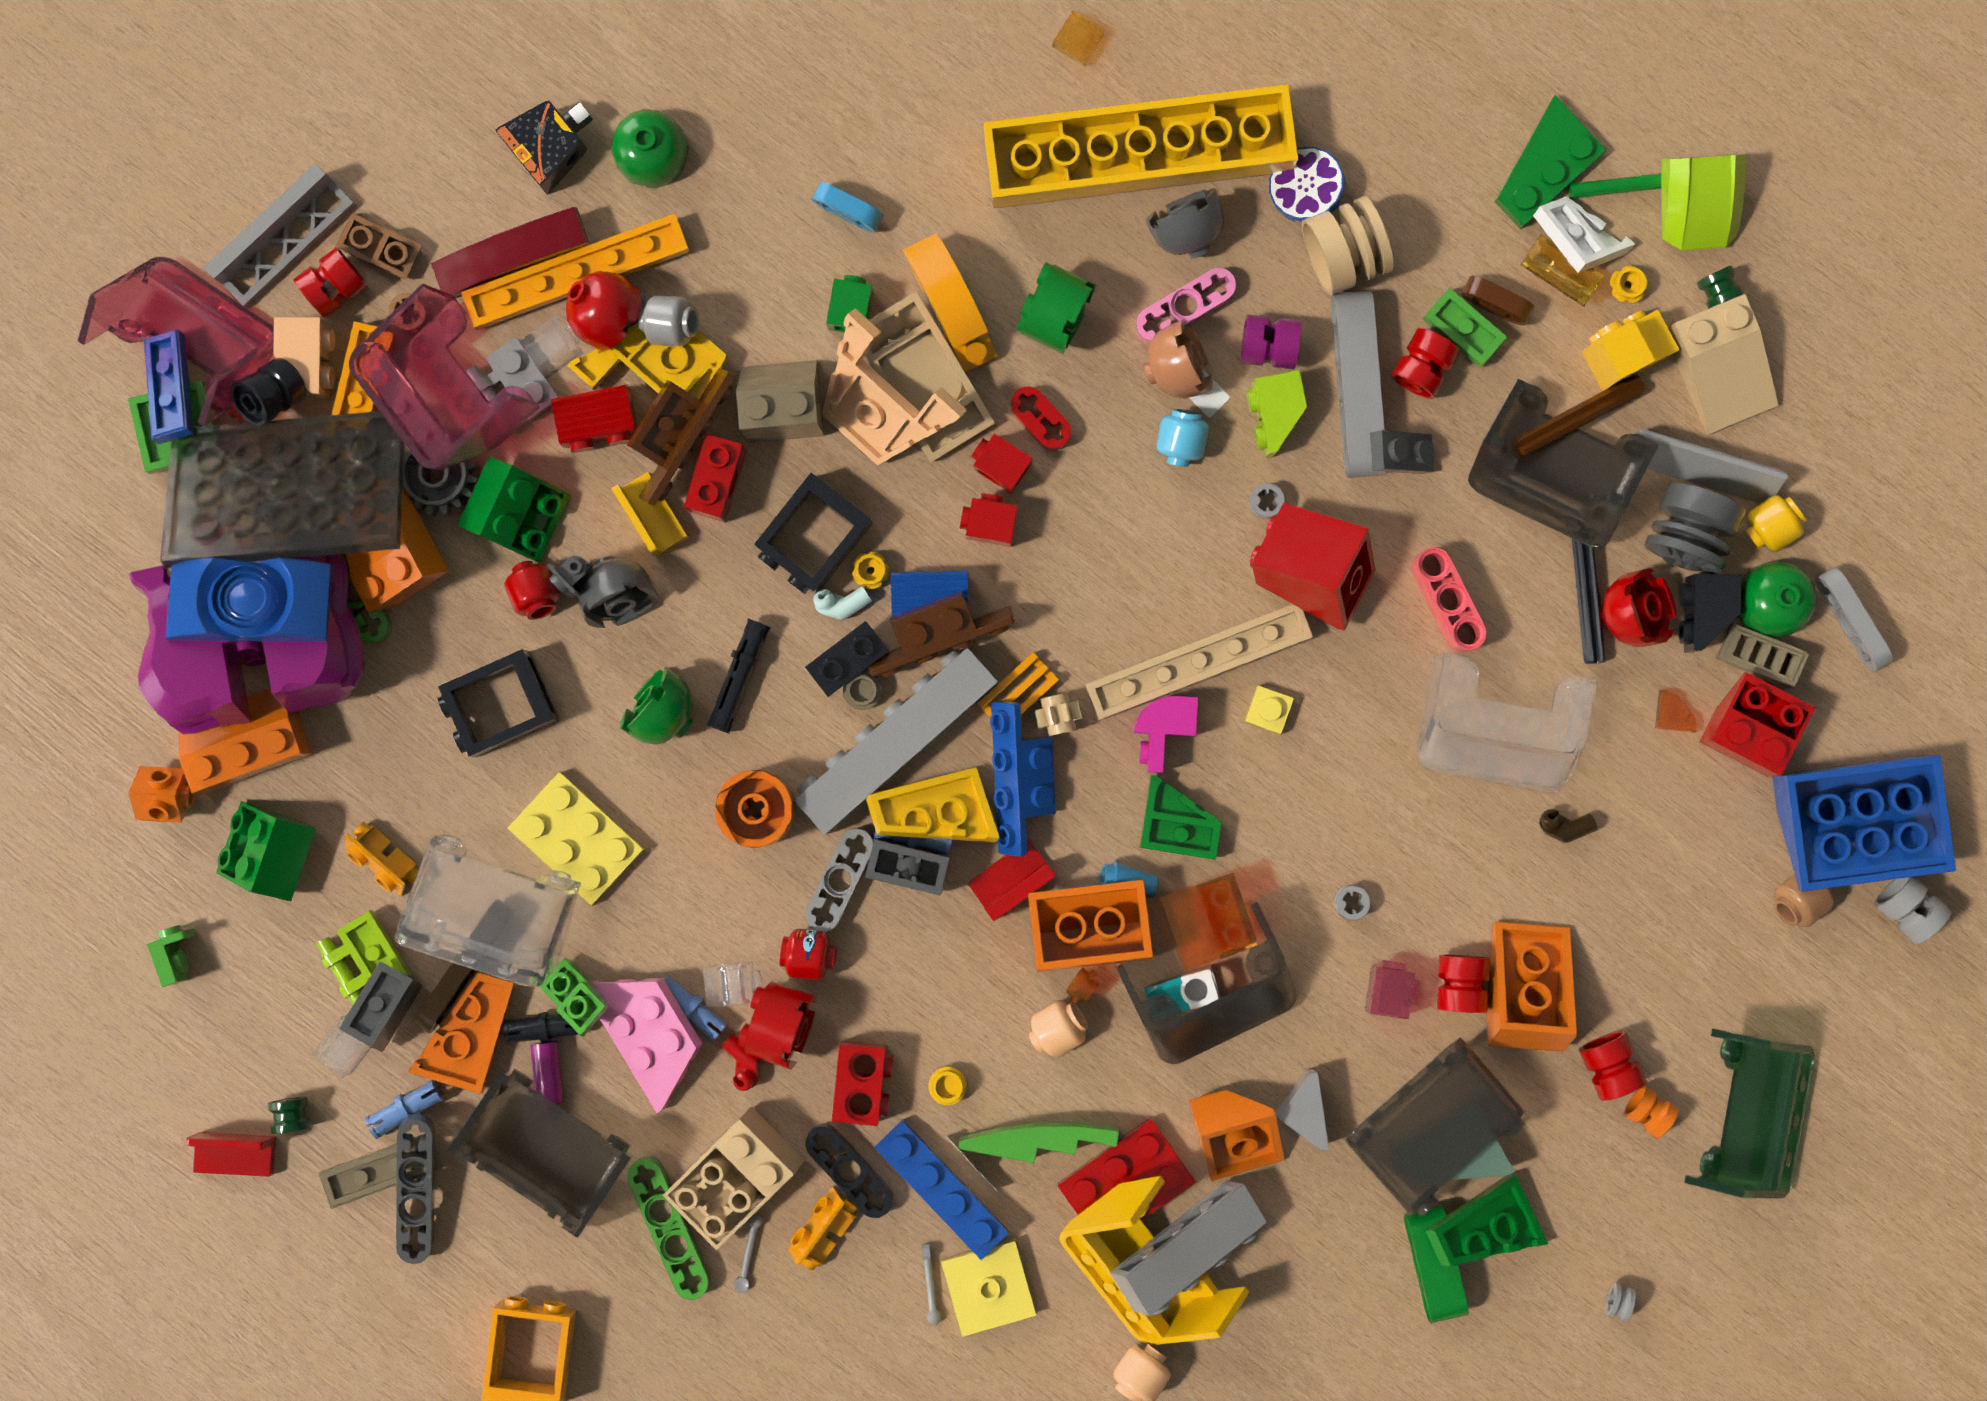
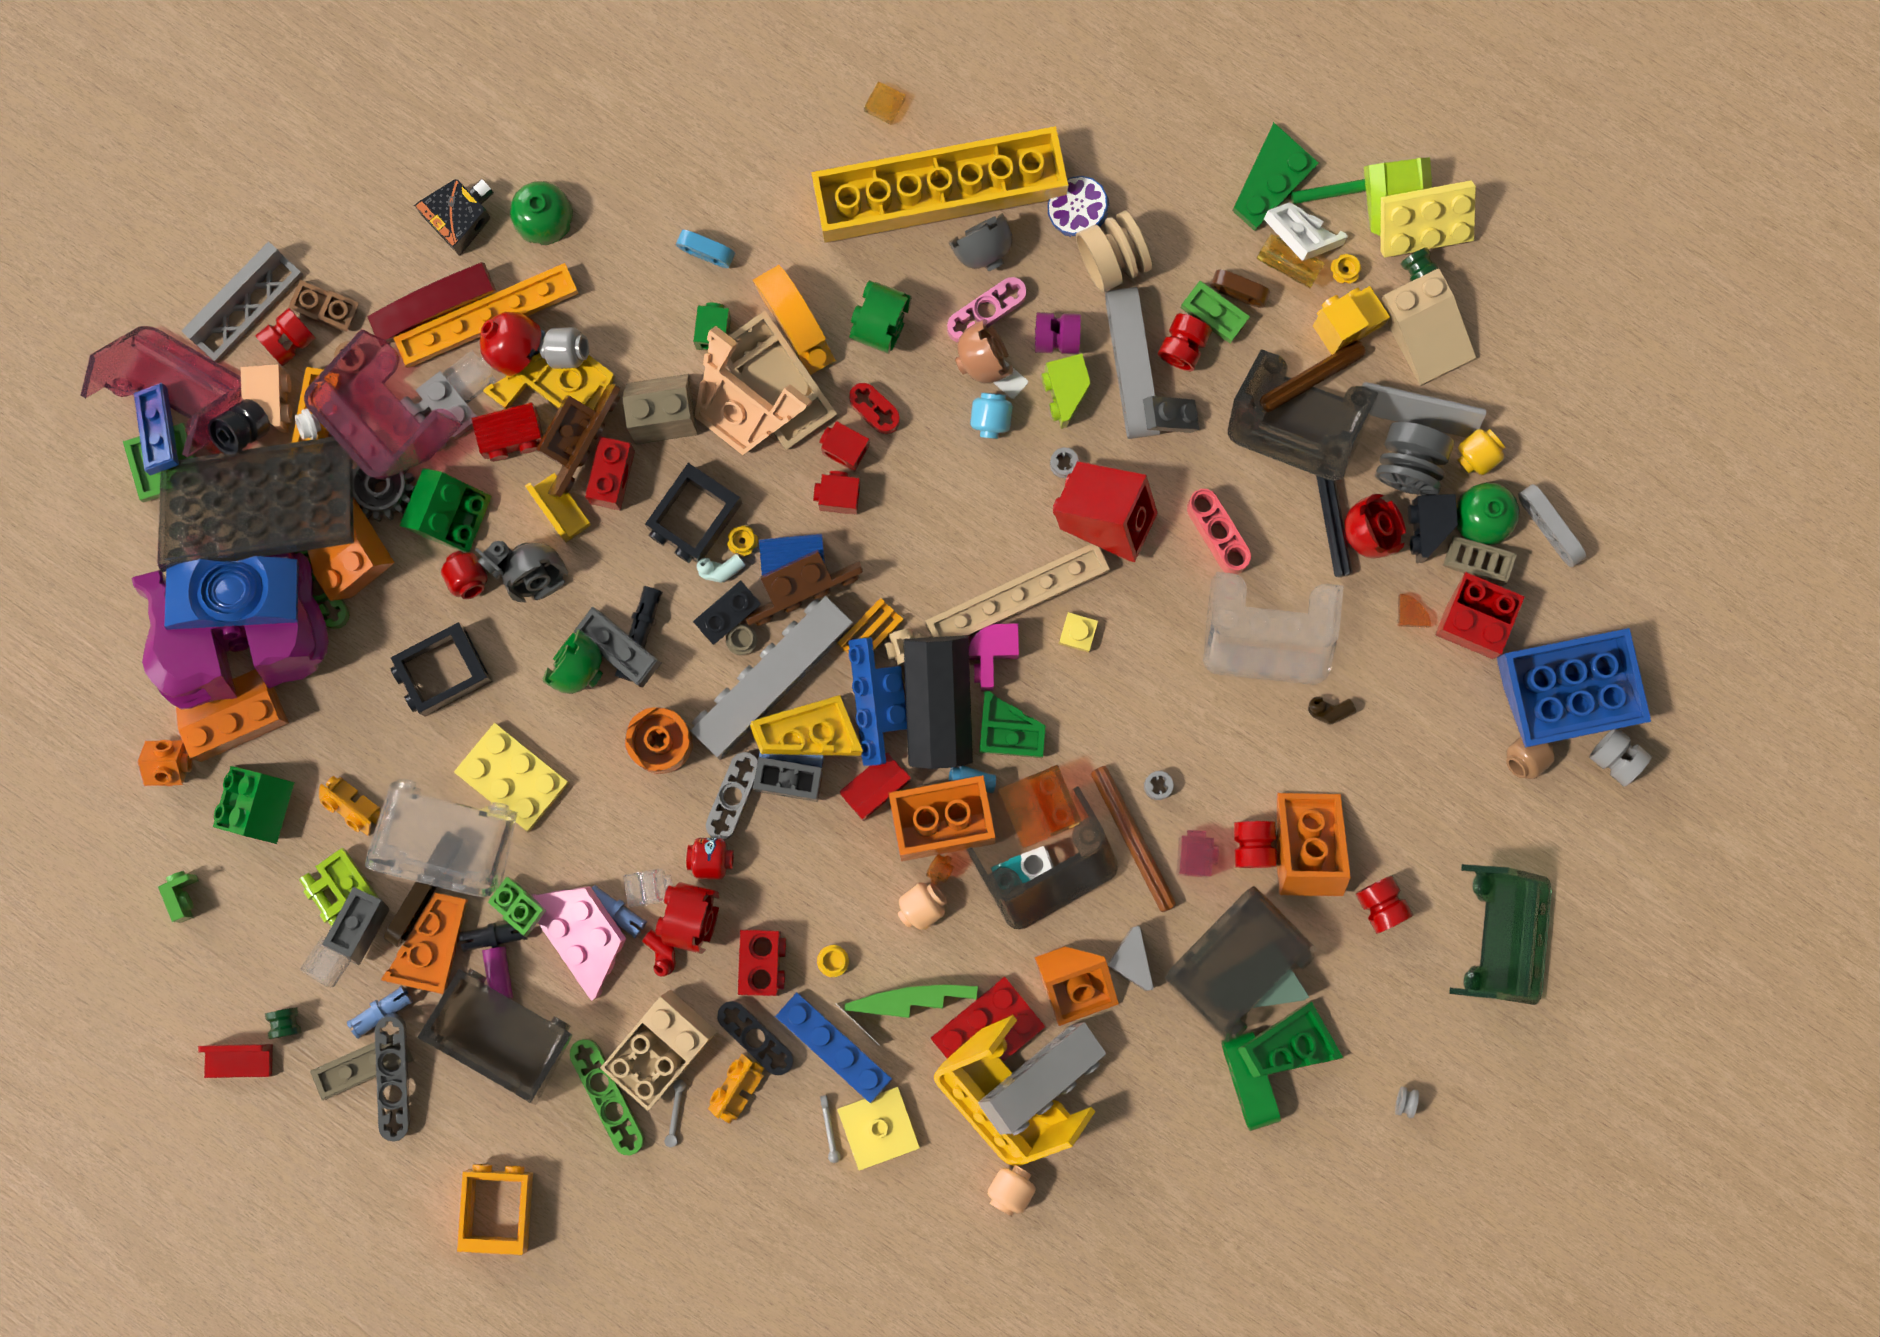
camera: 10 degrees left, 5 degrees down
(351, 395) = (307, 424): none -> white plate
(714, 692) = (619, 647): none -> dark grey tile
(1094, 786) = (938, 702): none -> black piece
(1317, 964) = (1133, 839): none -> dark orange axle
(1651, 1112) = (1419, 941): orange wheel -> none
(1735, 230) = (1427, 218): none -> light yellow plate

